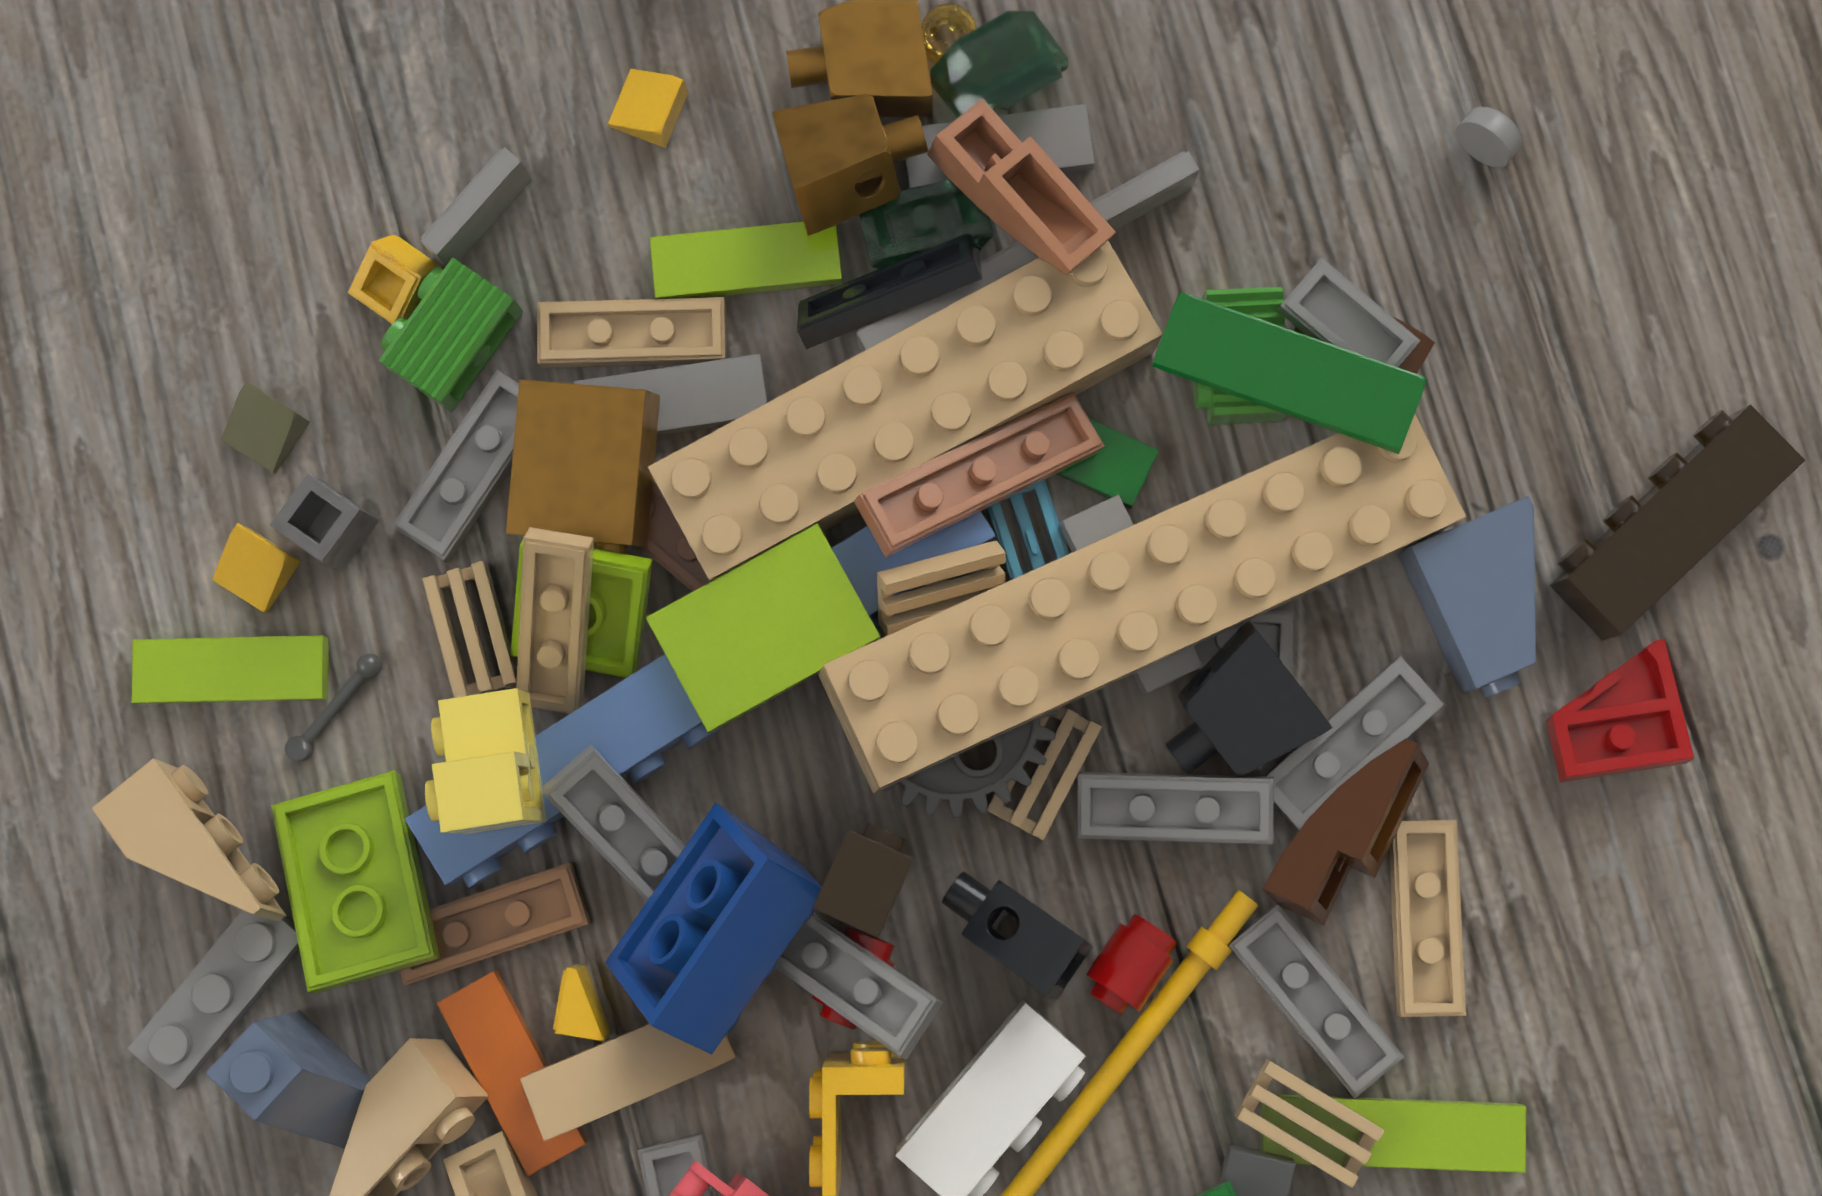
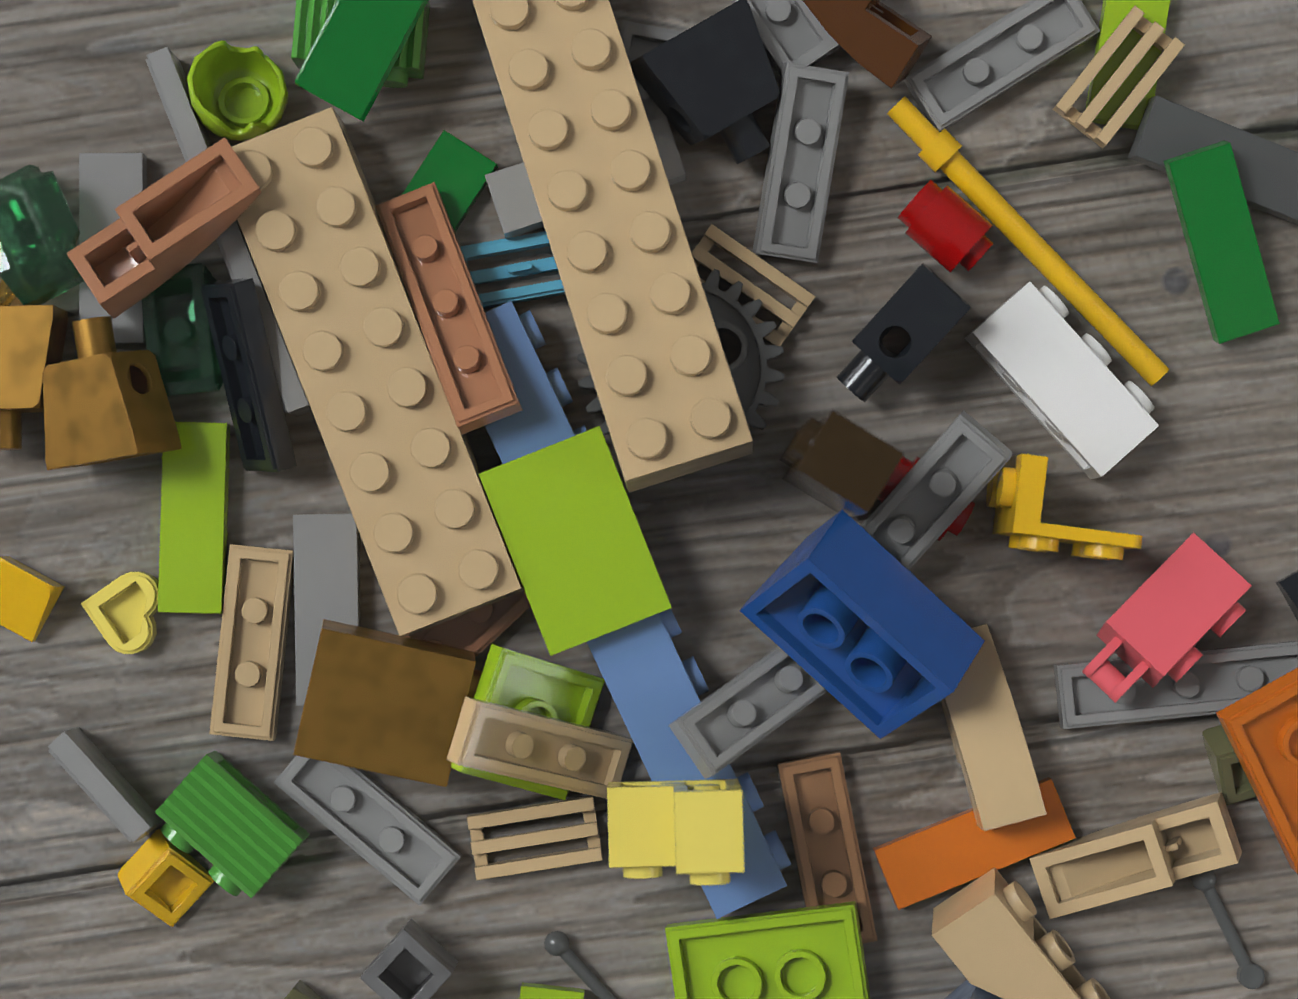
camera: 85 degrees left, 5 degrees up
(579, 1007) = (921, 769): yellow slope -> none
(646, 208) = (126, 611): none -> light yellow tile
(940, 593) = (556, 363): tan tile -> none
(1166, 243) = (236, 91): none -> lime hair

